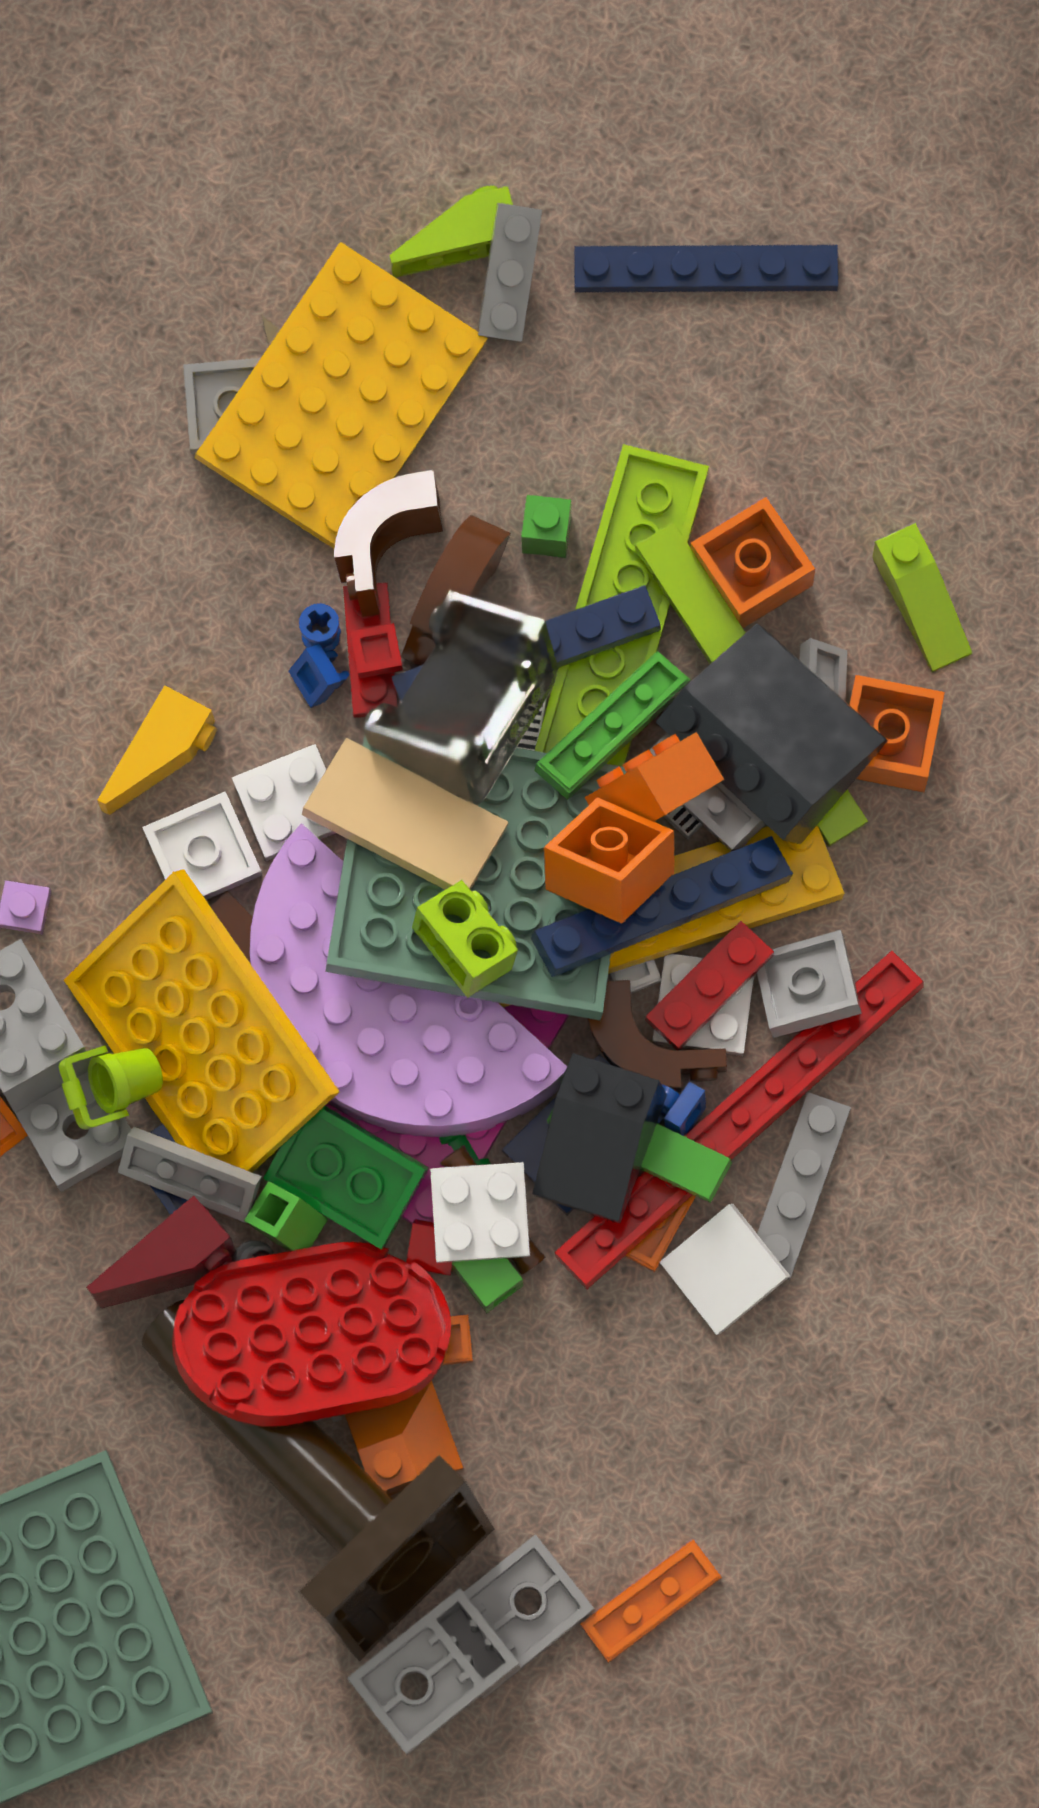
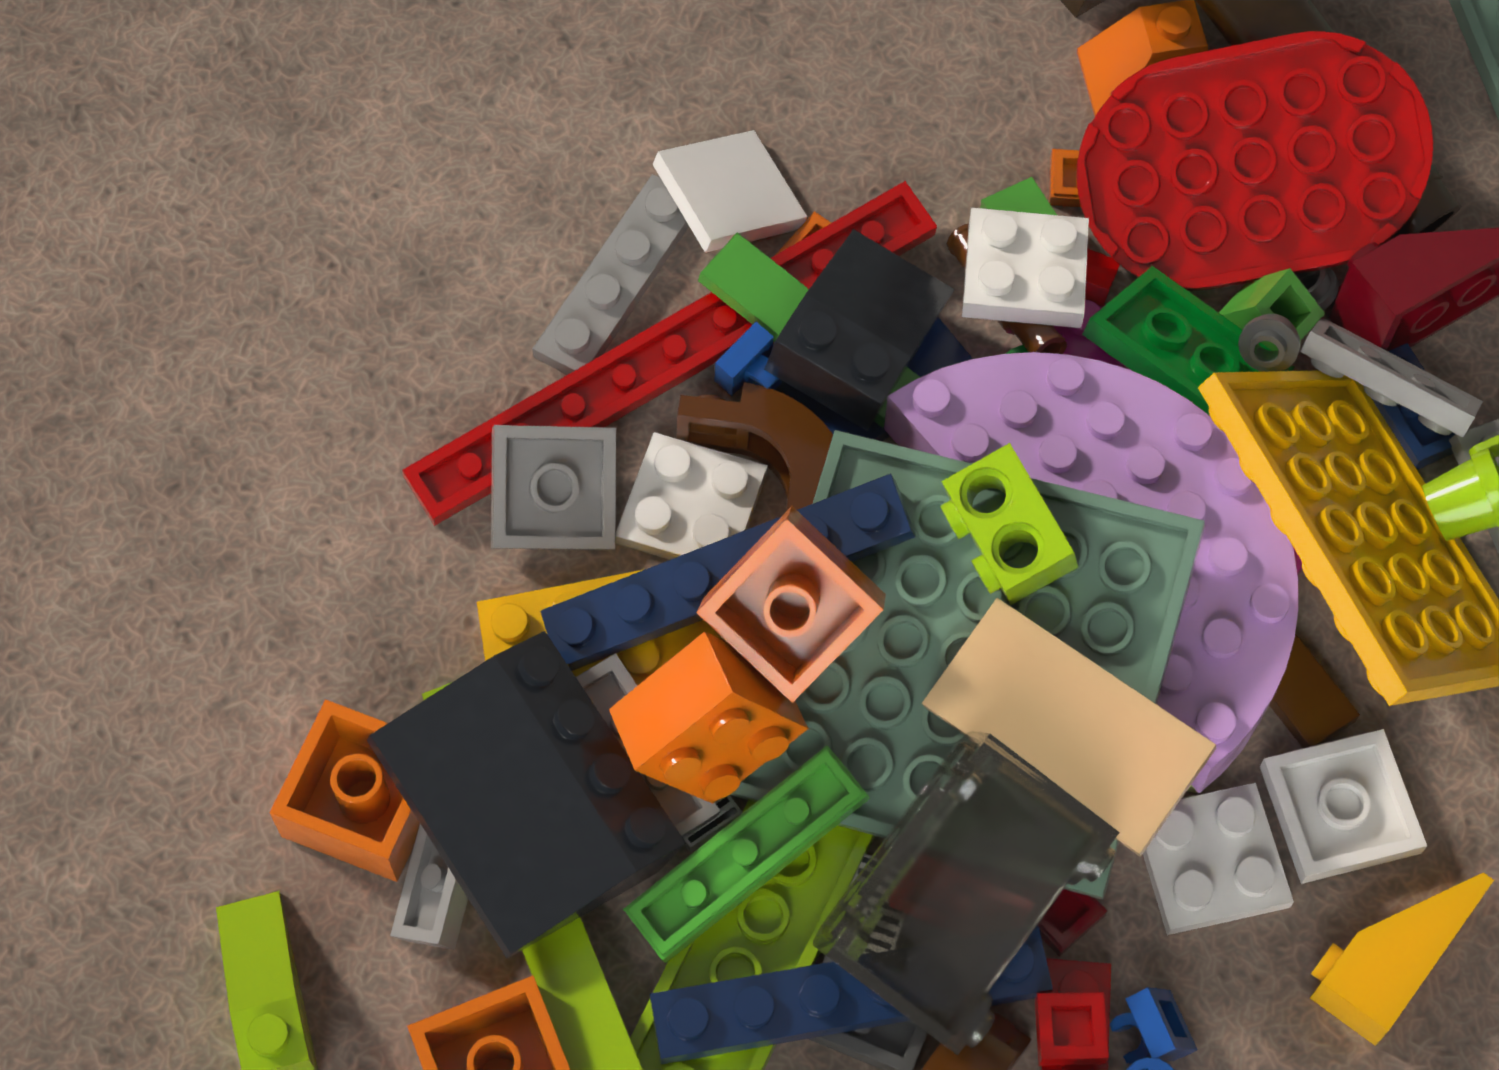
camera: 175 degrees left, 10 degrees down
(285, 1175) = (1275, 330): none -> dark grey plate
(709, 986) = (681, 504): red plate -> none

